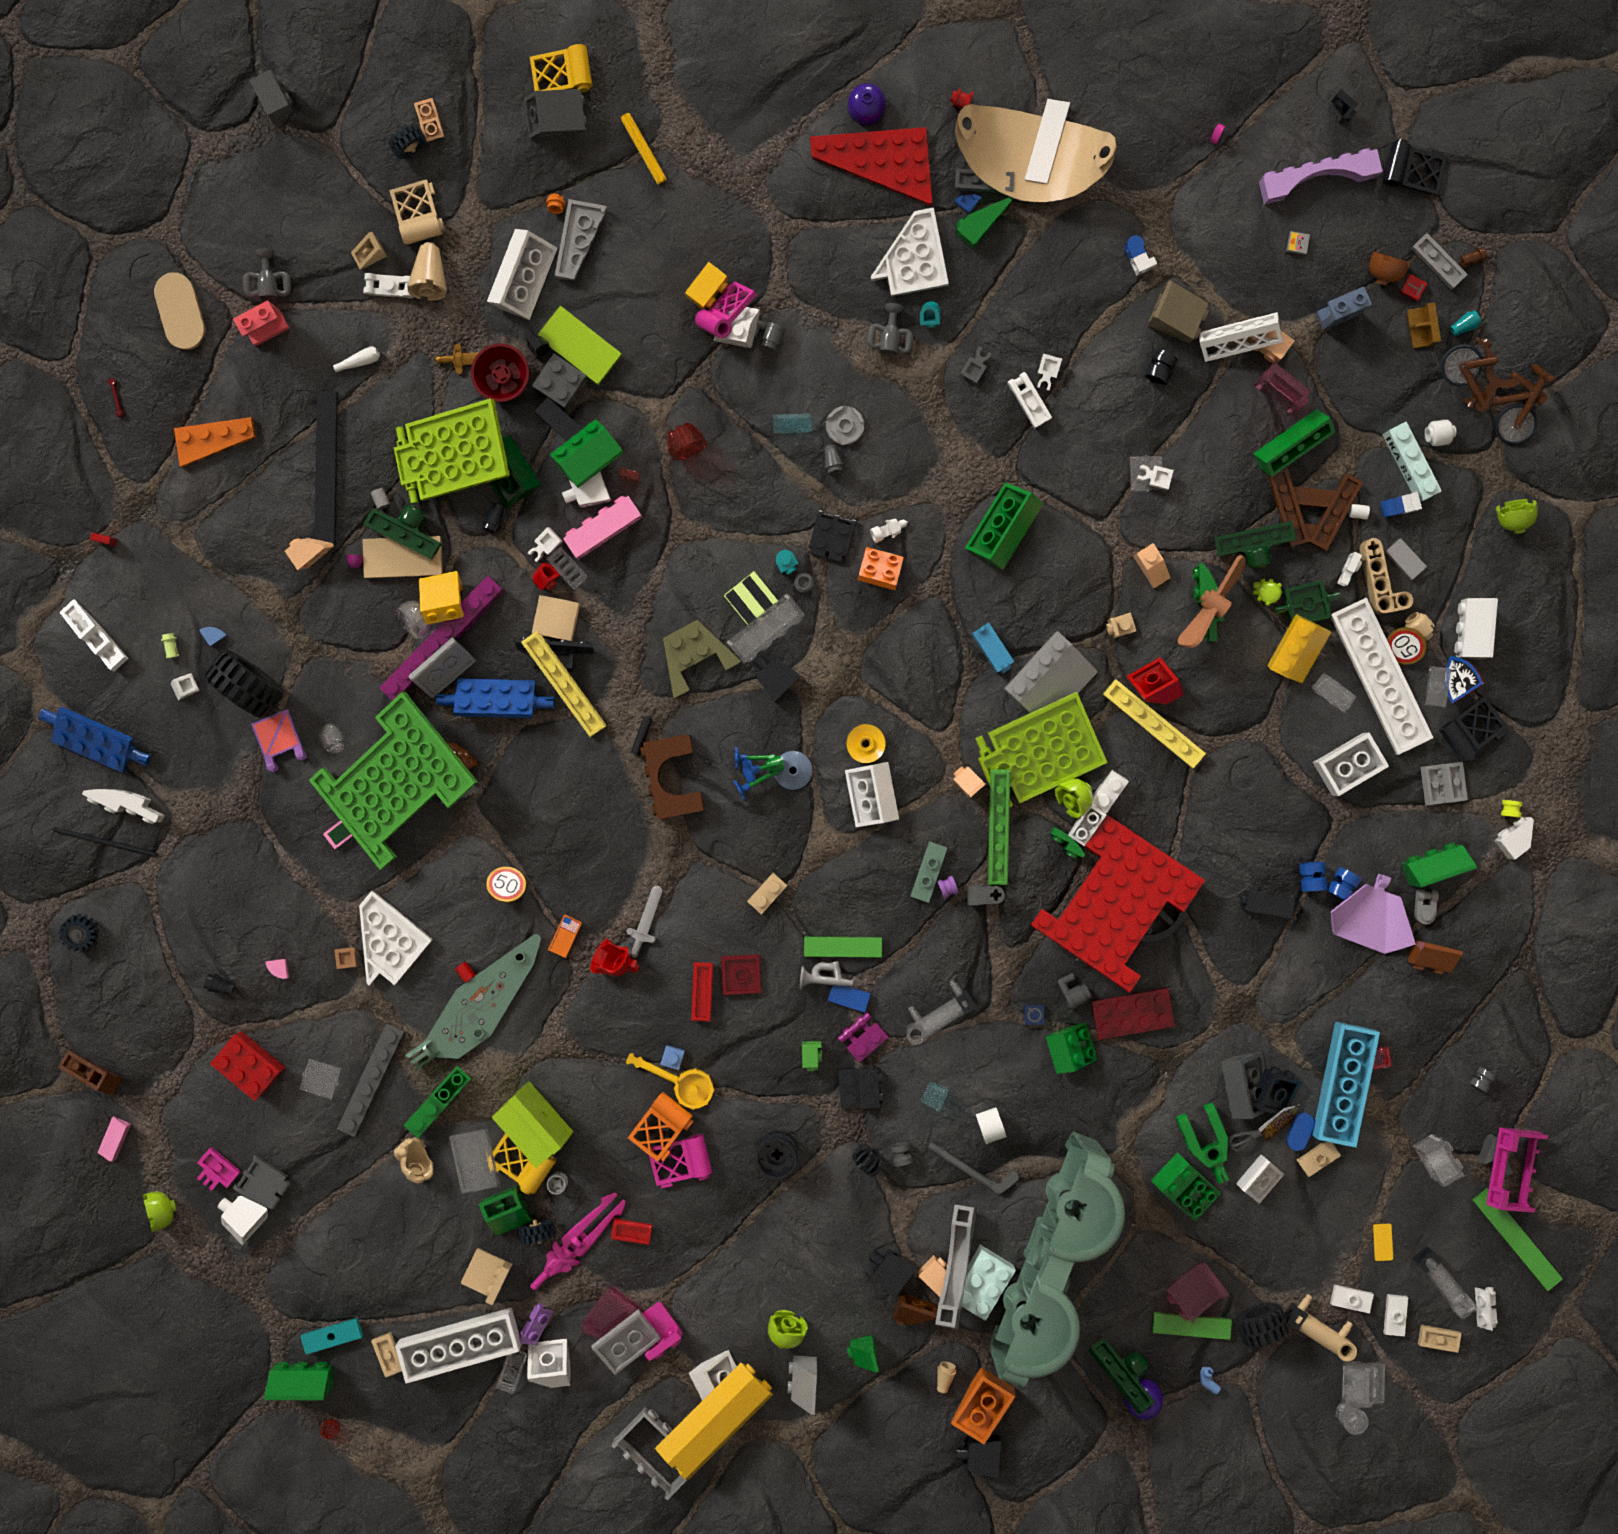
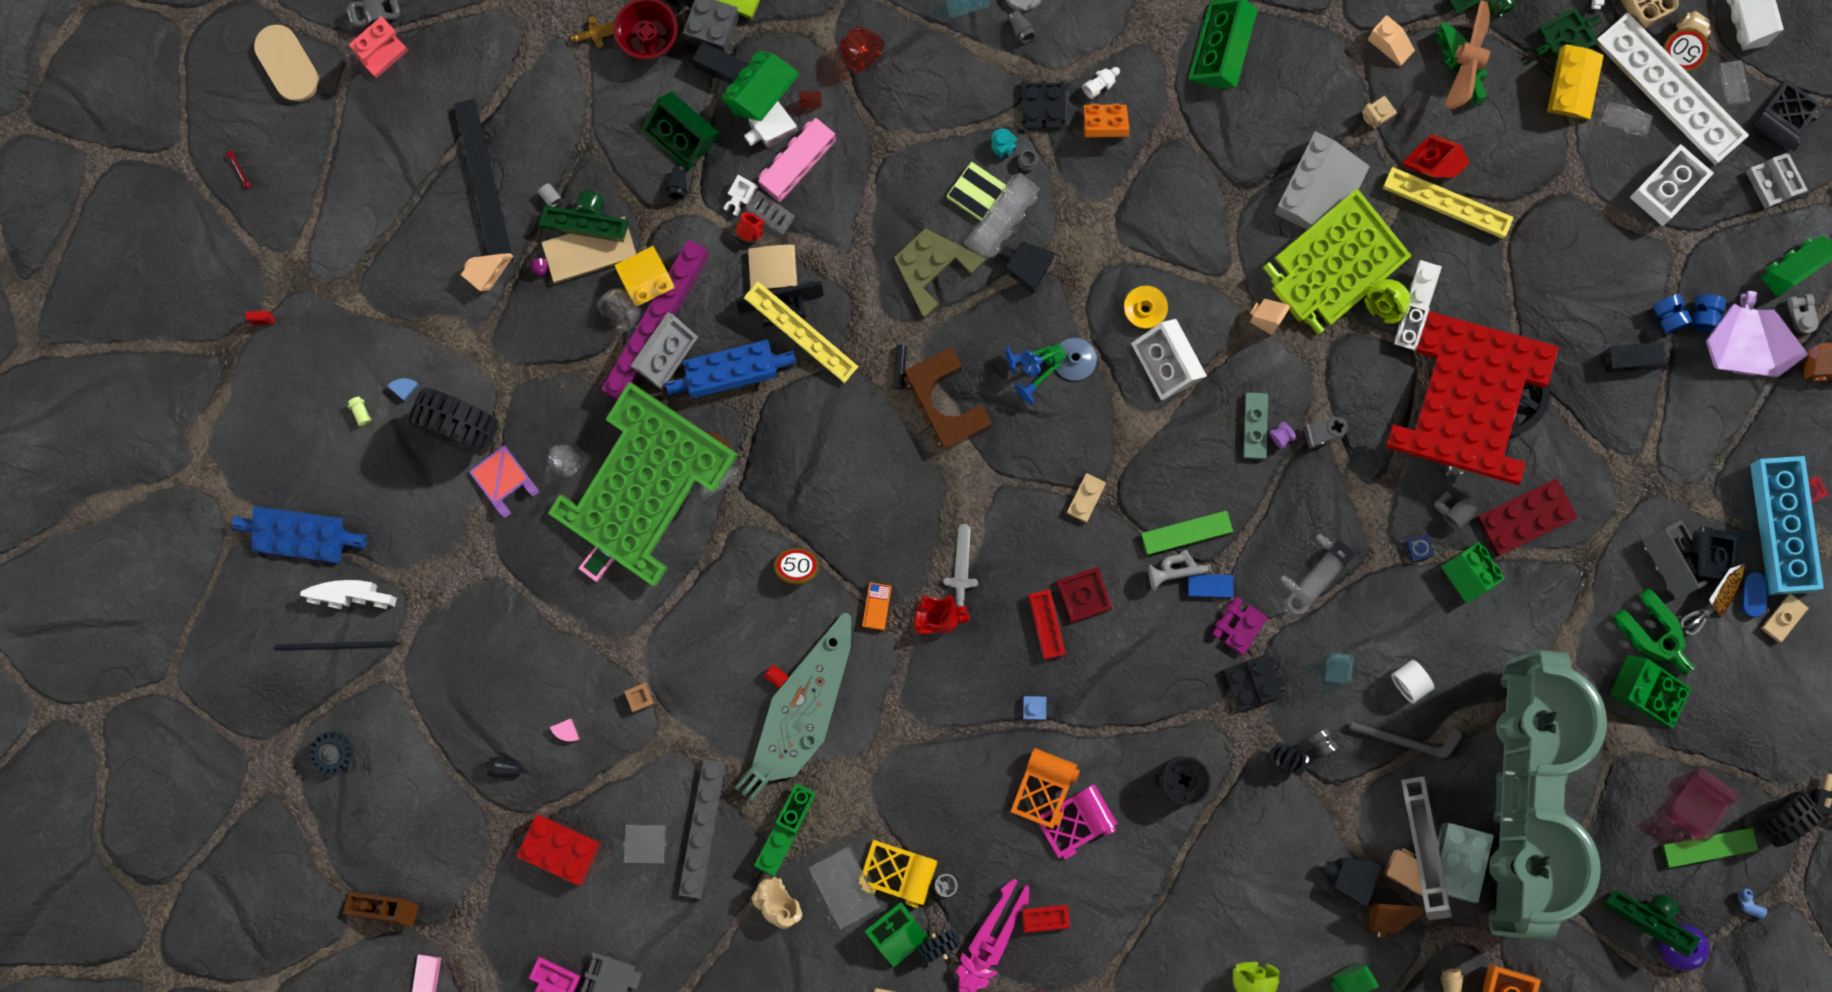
camera: 15 degrees left, 10 degrees down
(93, 635) = (272, 423): white slope -> none
(184, 686) = (385, 451): white slope -> none
(203, 440) = (345, 186): orange wing -> none
(361, 358) = (493, 58): white piece -> none
(388, 939) = (682, 664): white wing -> none
(451, 451) = (614, 122): lime plate -> none
(532, 1124) = (900, 819): lime container -> none
(691, 1088) = (1066, 735): yellow piece -> none
(811, 1055) = (1188, 660): bright green brick -> none
(993, 648) = (1251, 171): dark azure brick -> none
(998, 826) = (1317, 354): bright green tile -> none
(1071, 846) = (1402, 354): green slope -> none
(1260, 1179) = (1729, 658): white slope -> none
(1267, 591) = (1521, 36): lime piece -> none
(1463, 678) = (1758, 65): shield -> none

